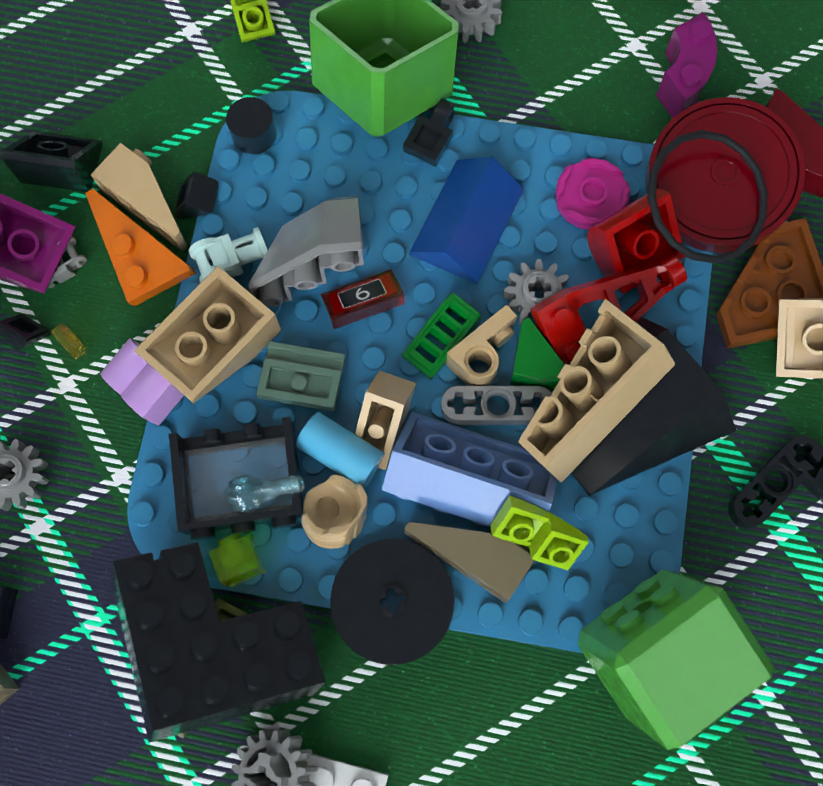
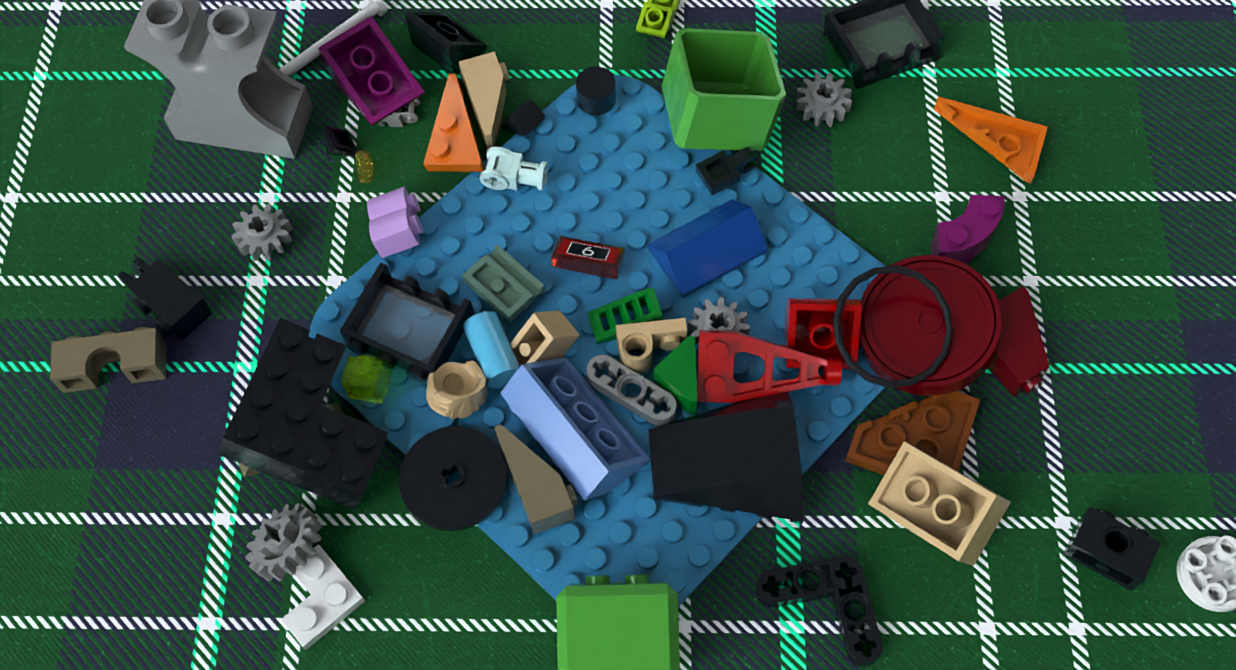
camera: 35 degrees right, 10 degrees down
(209, 336) = (457, 215): tan slope -> none
(247, 492) = (405, 335): clear light blue plate -> none
(308, 246) = (579, 193): light grey brick -> none
(546, 535) = (591, 494): lime slope -> none
(590, 192) = (817, 276): dark pink tile -> none
(595, 391) = (697, 414): tan wedge -> none

